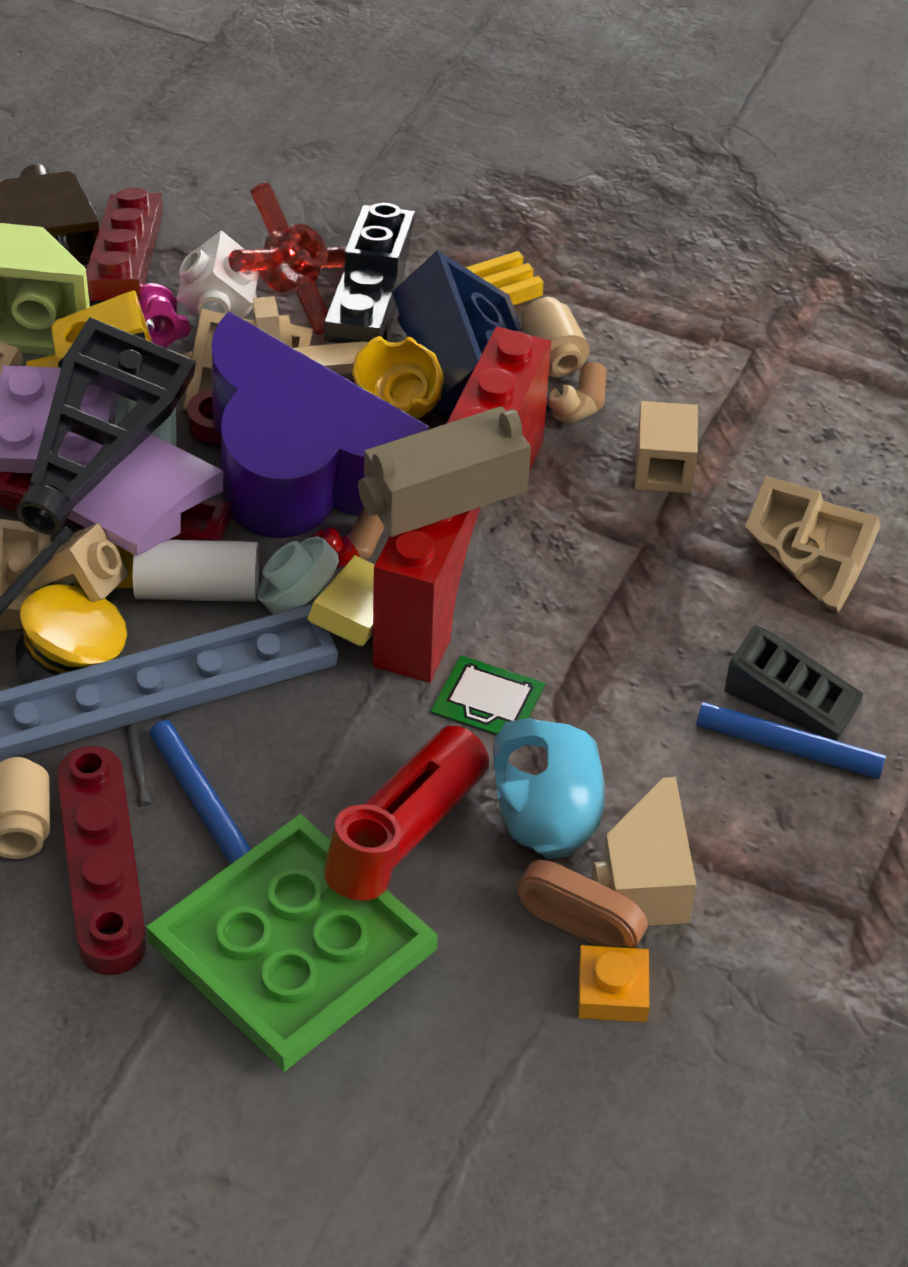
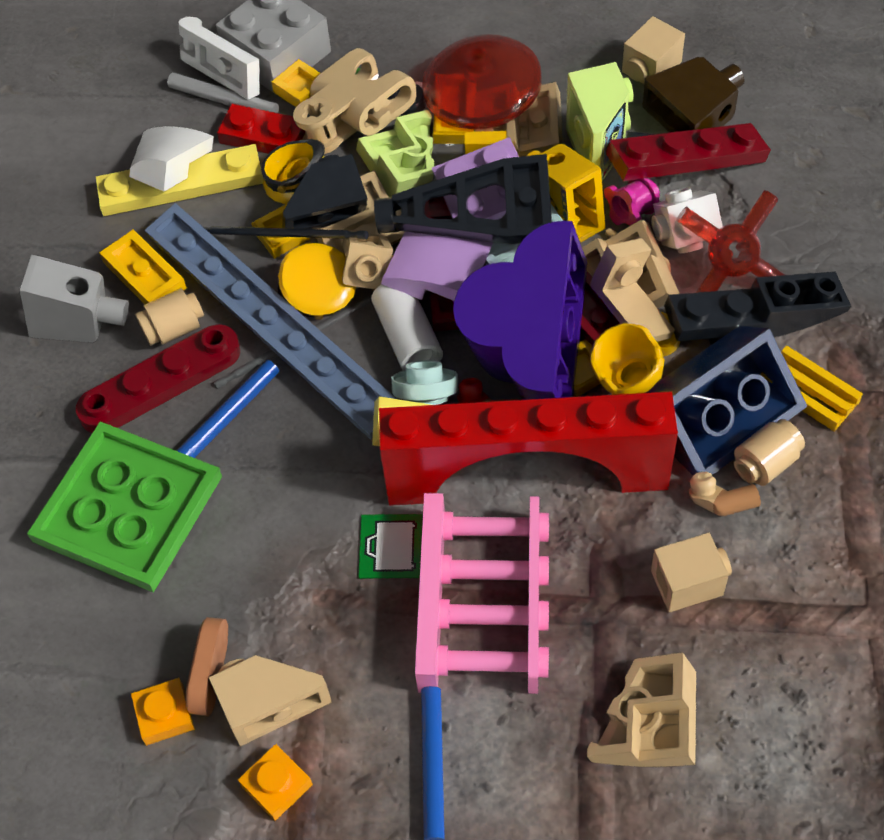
camera: 75 degrees right, 10 degrees up
(380, 833) = (234, 523): red piece -> none
(446, 470) = (462, 408): dark tan brick -> none
(563, 803) = (285, 609): medium azure piece -> none
(593, 665) = (438, 613): none -> bright pink fence
(756, 893) = (275, 782): none -> light orange plate
(780, 659) = (491, 704): pearl dark grey slope -> none

